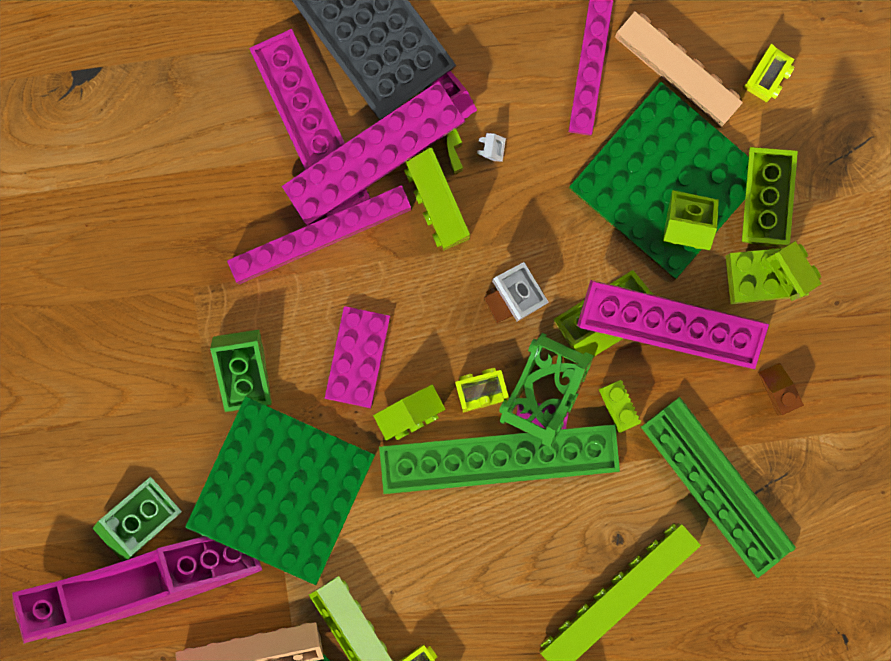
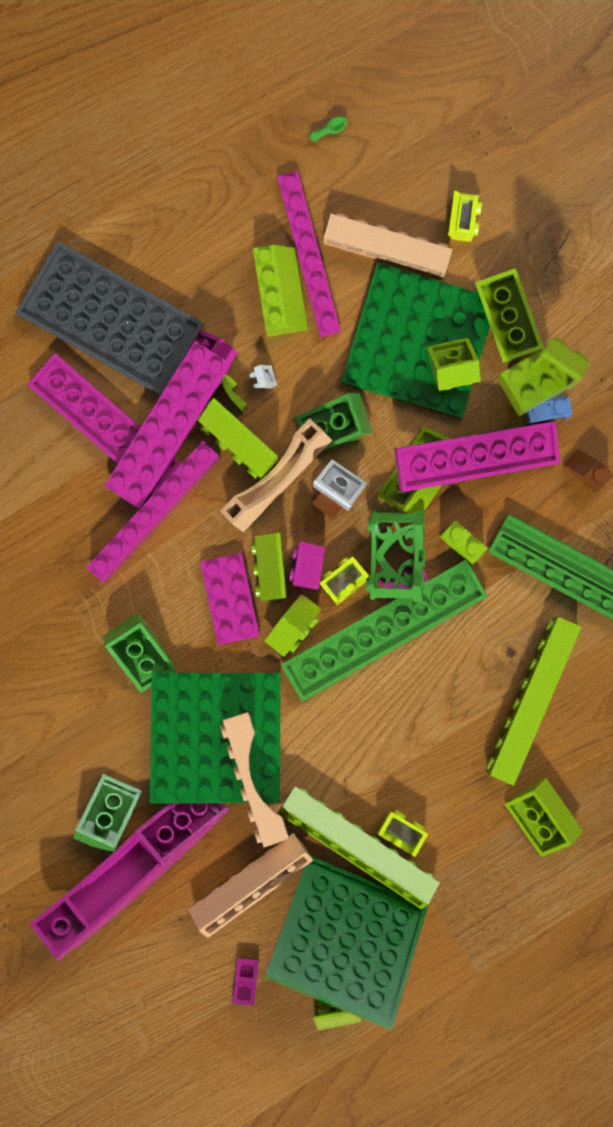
camera: 20 degrees left, 0 degrees up
(296, 602) = (269, 823): none -> light nougat arch
(411, 343) = (269, 567): none -> lime slope
(451, 359) = (308, 566): none -> dark pink slope
(499, 239) = (304, 448): none -> light nougat arch
(543, 227) = (340, 419): none -> bright green slope
(549, 65) = (280, 290): none -> lime slope
(771, 311) = (551, 409): none -> medium blue window

